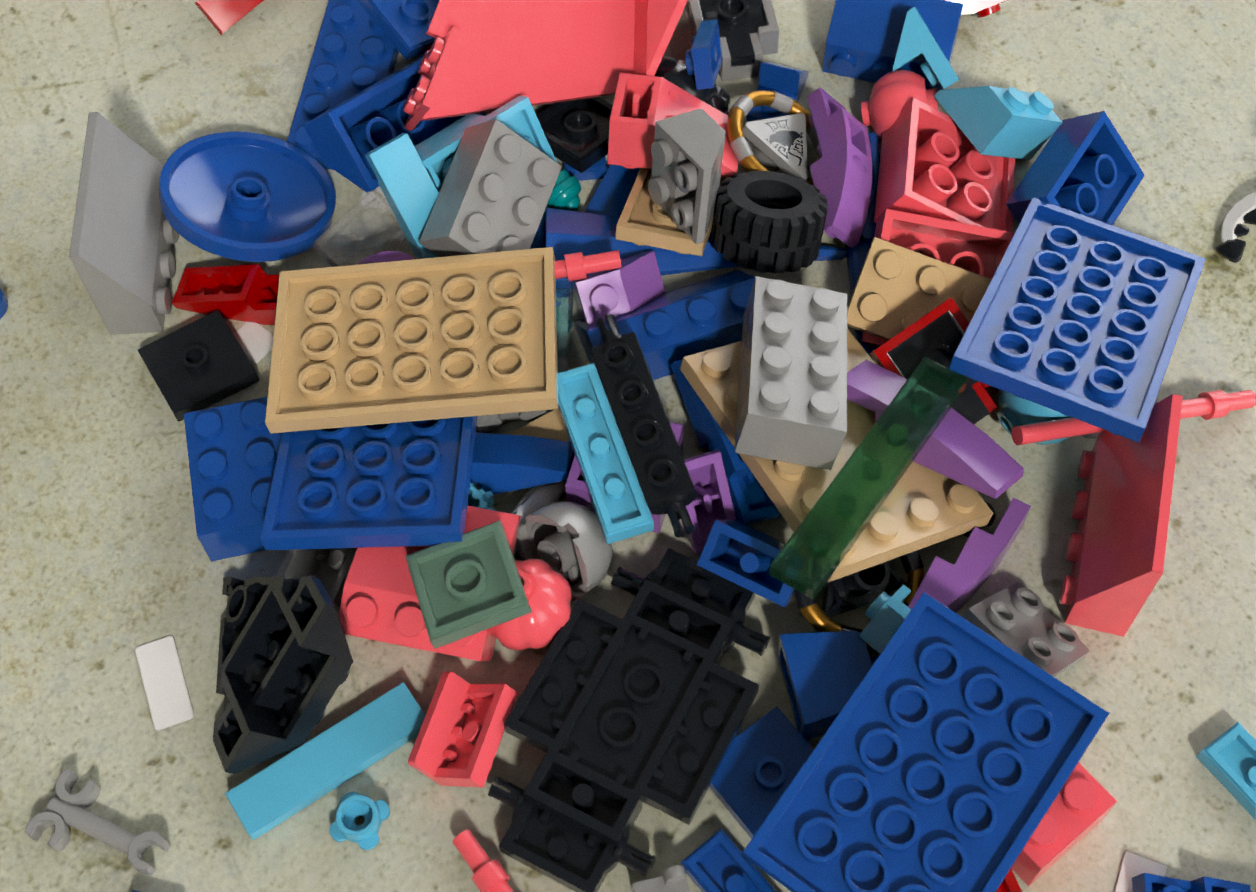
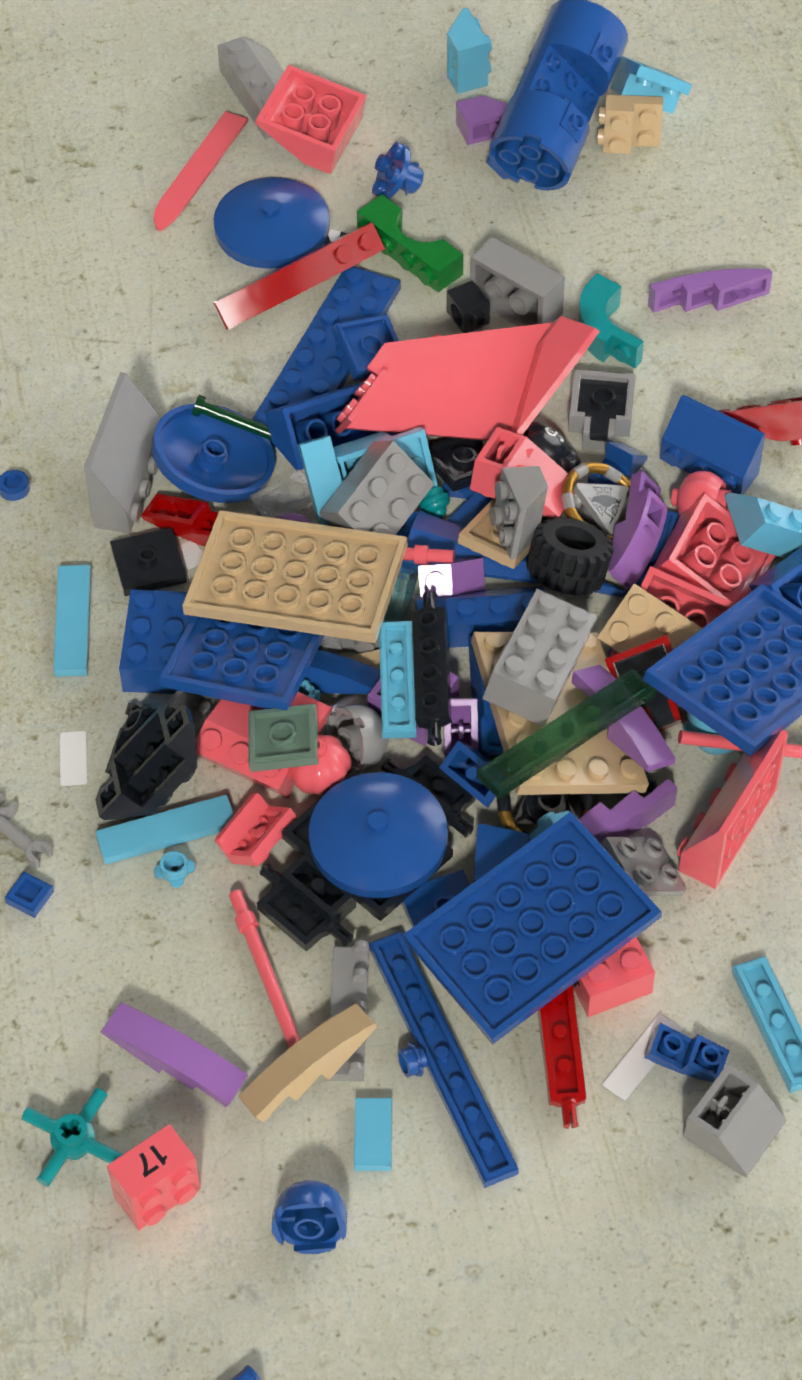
camera: 15 degrees right, 5 degrees down
(112, 477) = (72, 621): none -> medium azure tile
(258, 143) = (230, 418): none -> dark green bar
(647, 695) = (378, 835): none -> blue dish
(705, 55) = (566, 427): blue plate -> none
(918, 40) = (724, 453): medium azure slope -> none

